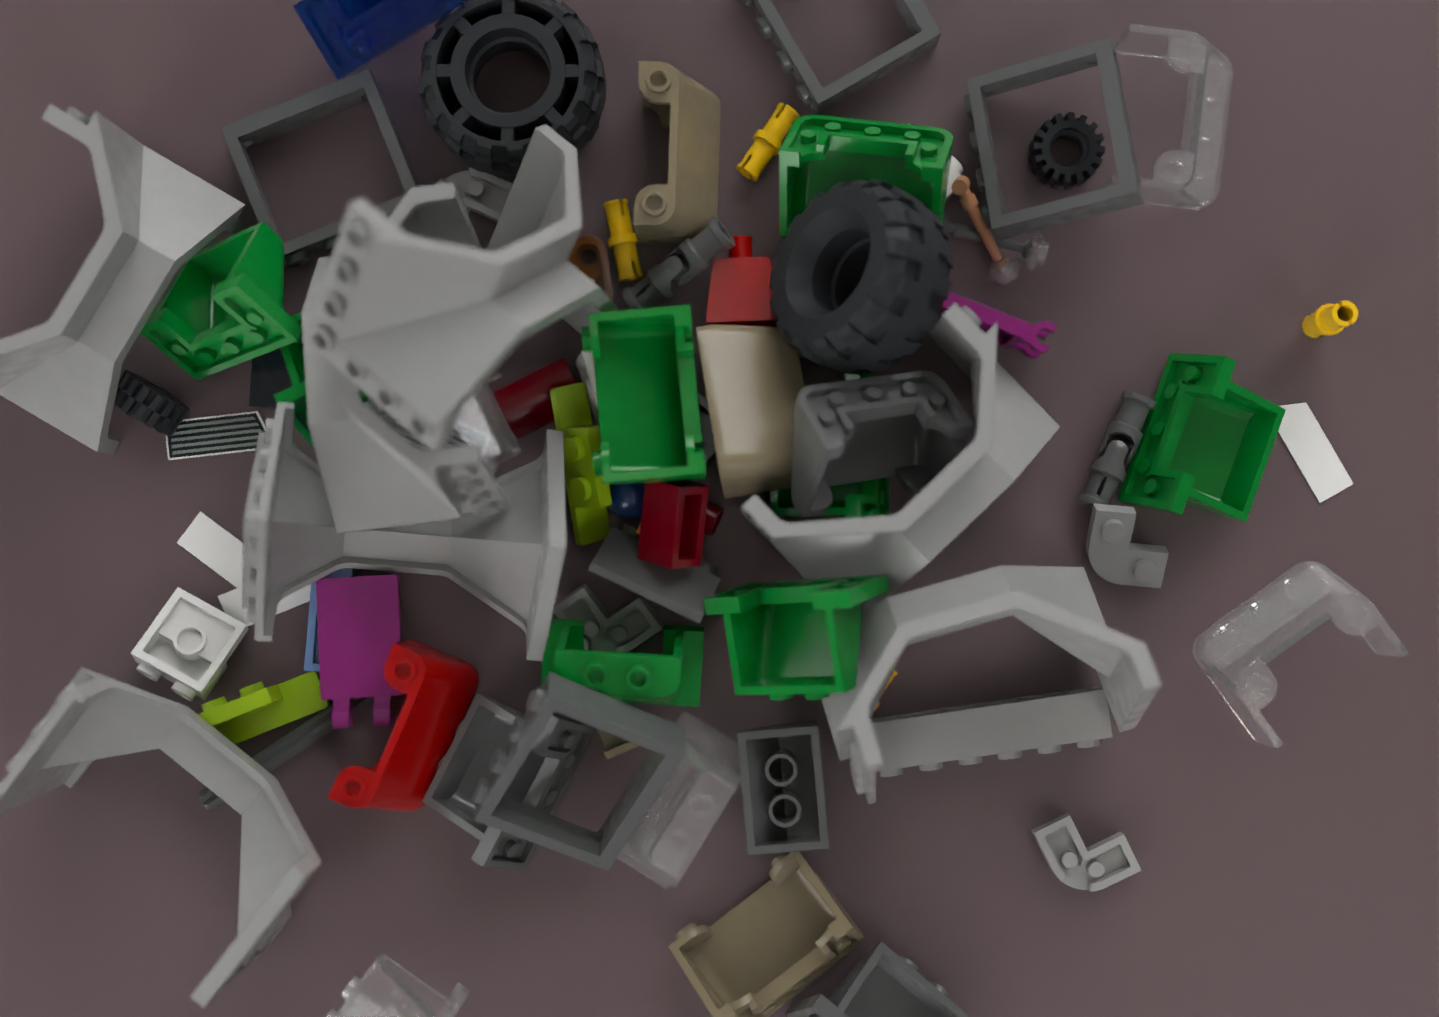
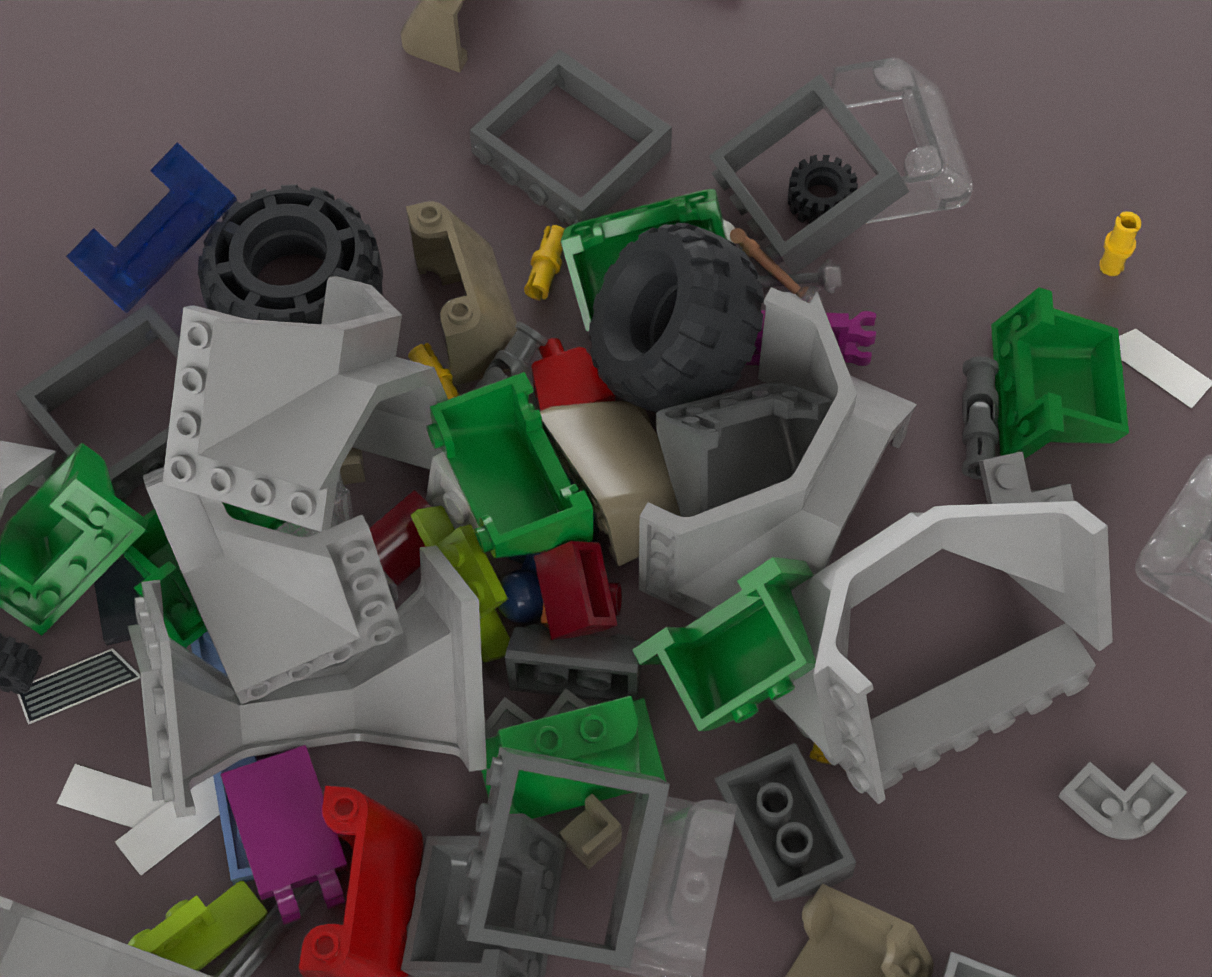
camera: 20 degrees left, 25 degrees down
(188, 645) = (100, 889): white plate -> none

